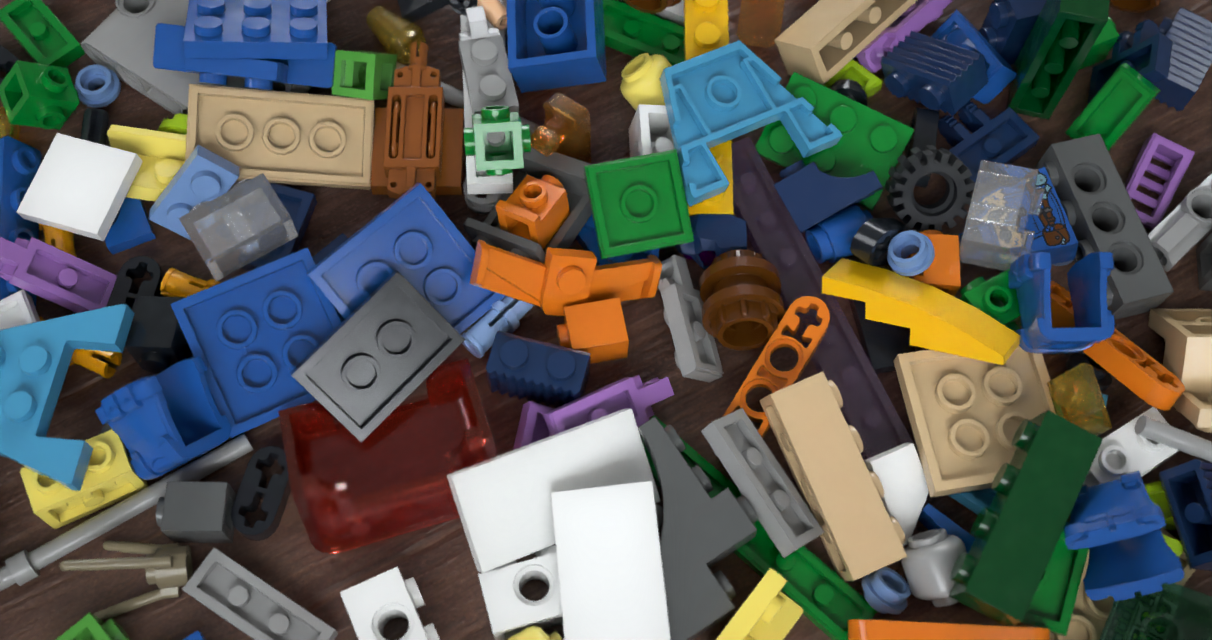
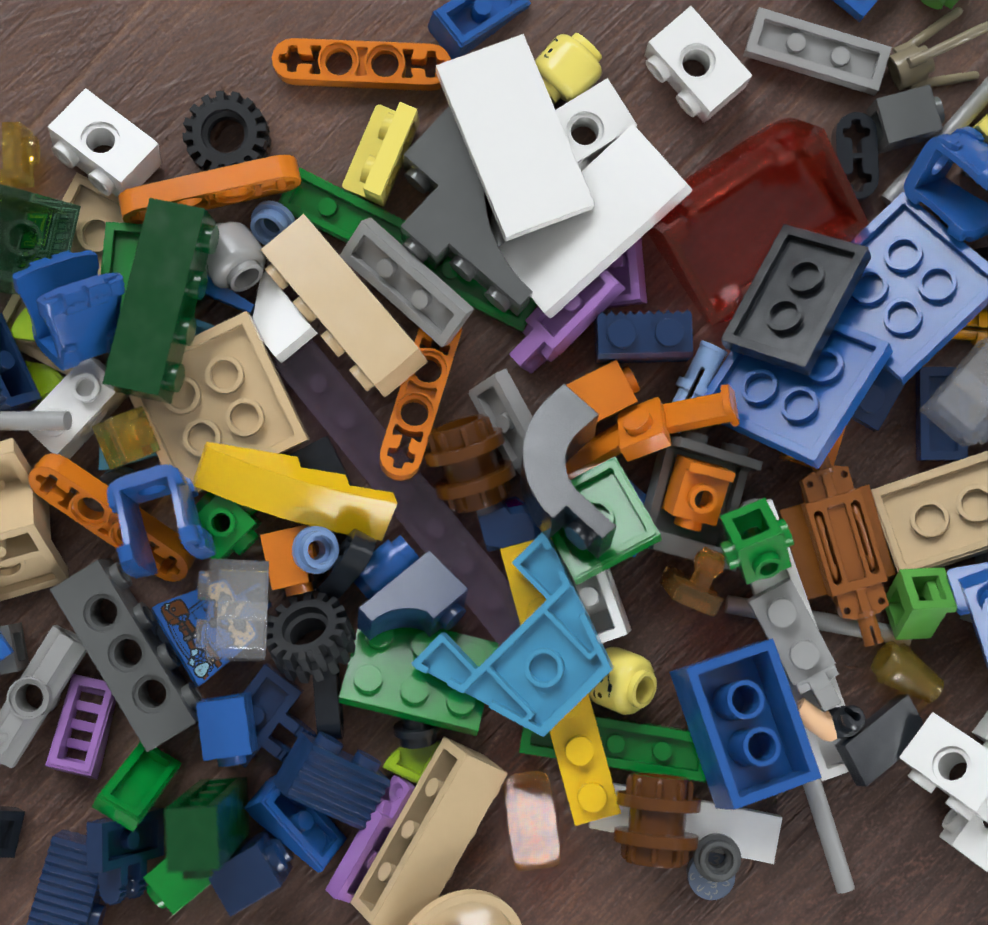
camera: 165 degrees right, 20 degrees up
(677, 253) = (553, 436): none -> arch
(1023, 132) = (227, 728): none -> blue brick

